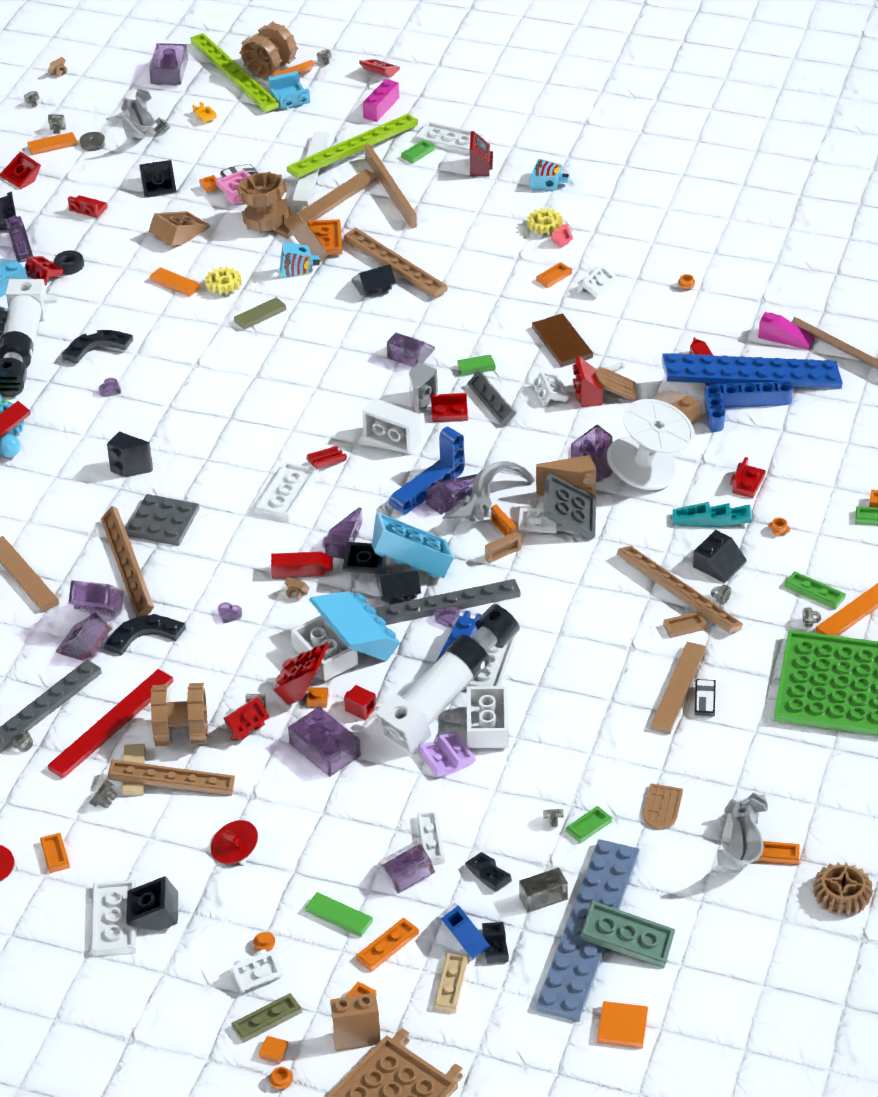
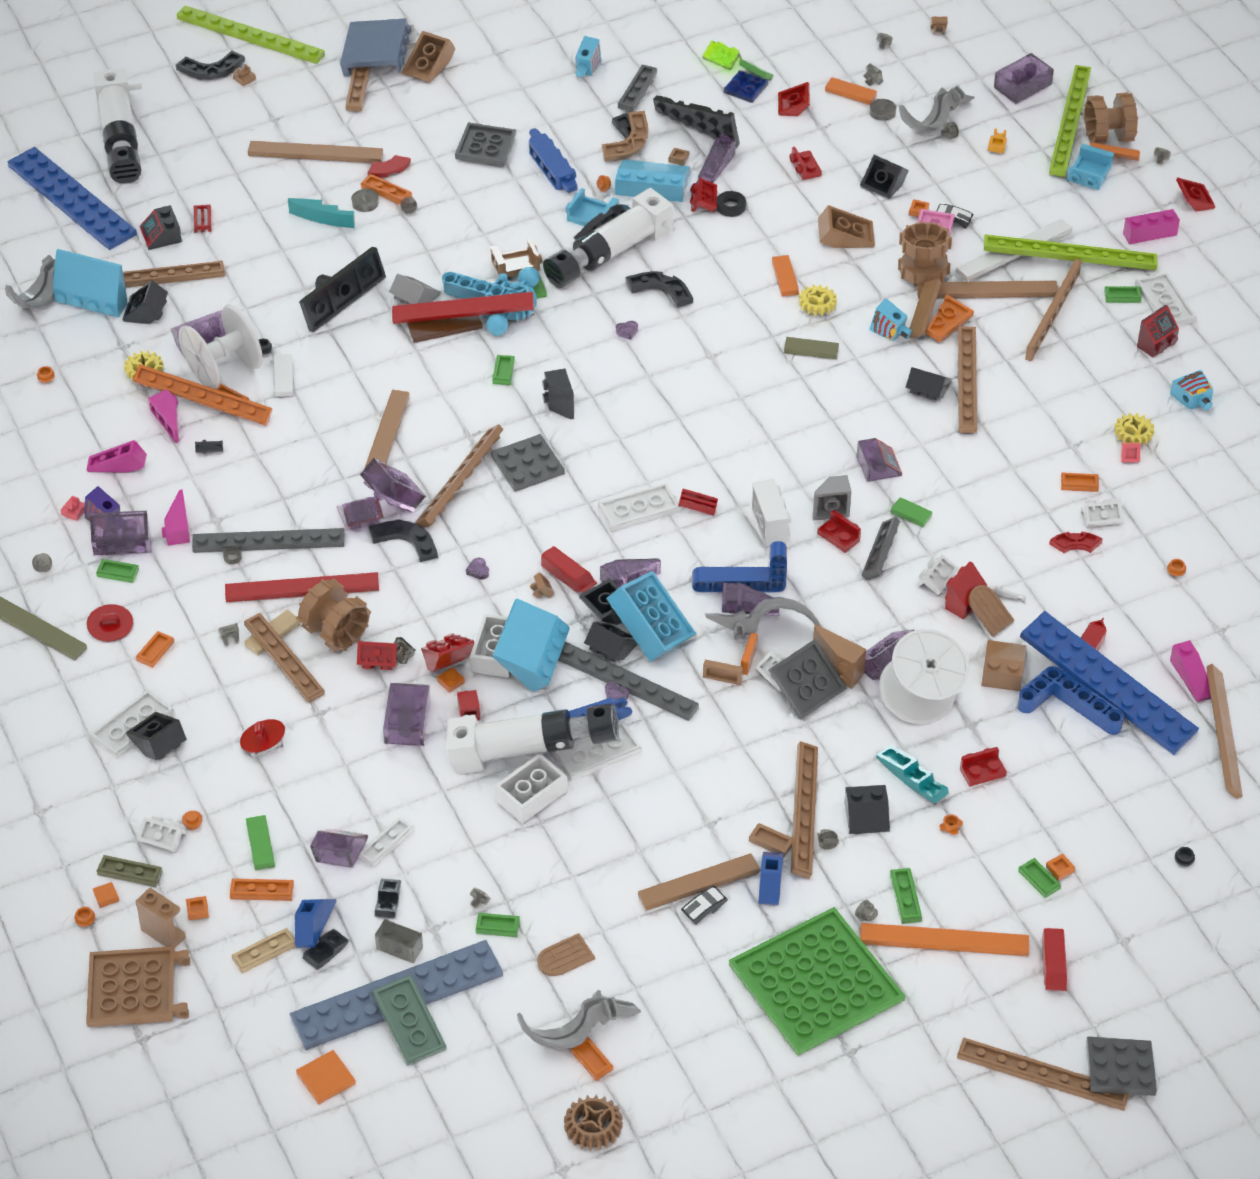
camera: 45 degrees right, 5 degrees up
(53, 473) = (503, 369): none -> bright green tile
(446, 754) = (474, 793): lavender slope -> none
(561, 339) = (1006, 541): reddish brown tile -> none
(602, 310) = (1071, 541): none -> red tile
(723, 642) = (770, 878): none -> blue slope

